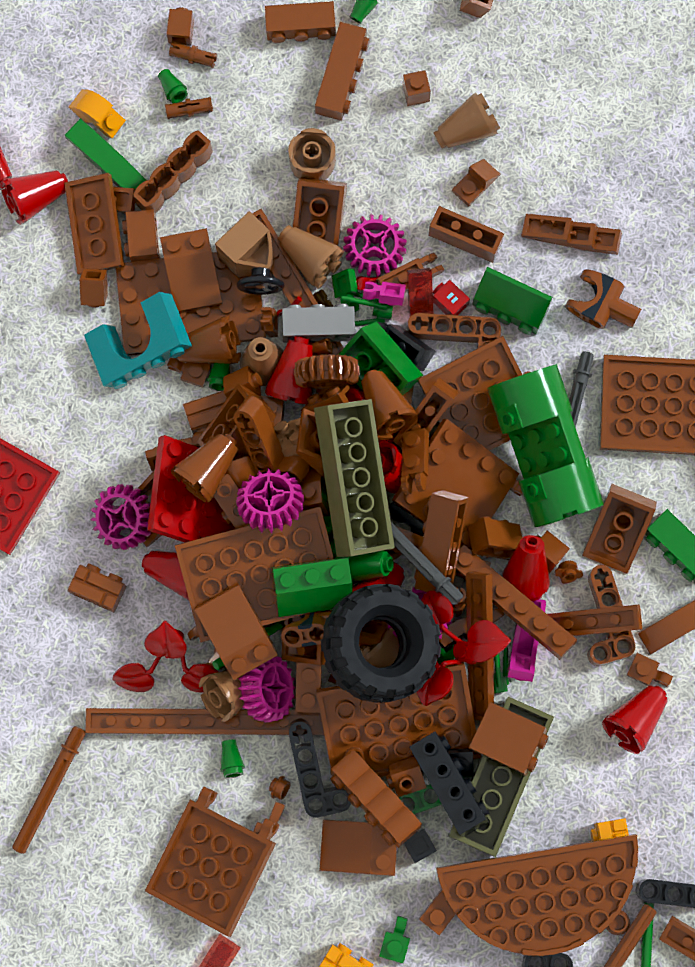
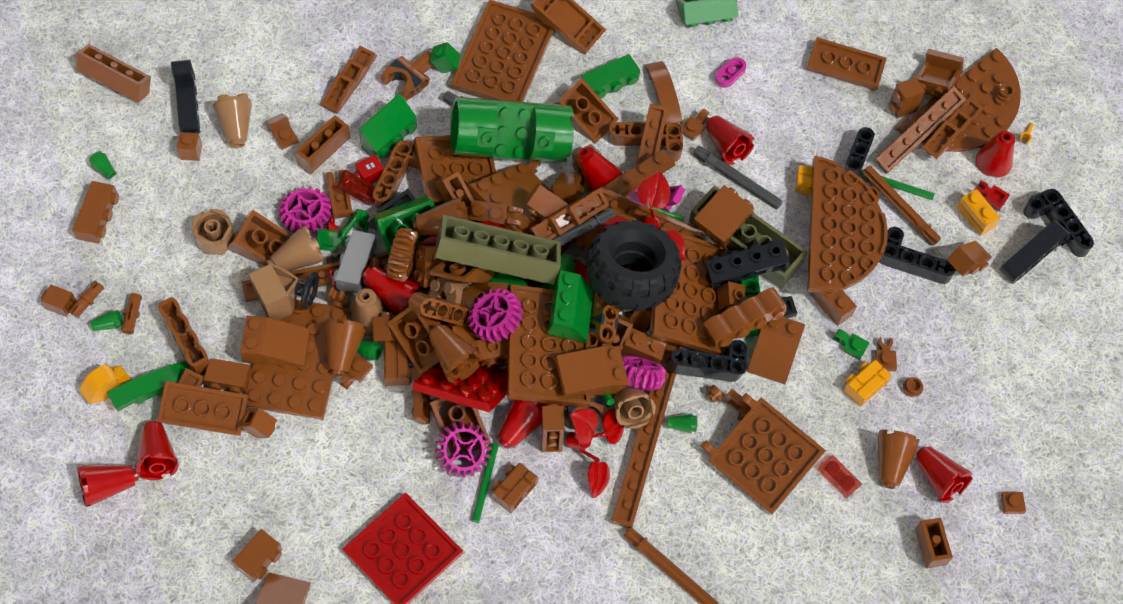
camera: 80 degrees left, 15 degrees down
(96, 554) = (484, 483): none -> green bar
(166, 341) = (334, 422): teal arch -> none
(168, 607) = (552, 428): none -> dark orange brick
(341, 71) = (151, 194): dark orange brick -> none
(387, 293) = (350, 206): dark pink plate -> none
(436, 551) = (571, 215): none -> dark orange slope
(477, 62) = (186, 96): none -> black beam
(568, 572) = (607, 151): dark orange plate -> none
(588, 744) = (737, 177): none -> dark grey axle
(637, 335) = (445, 57): none -> green brick

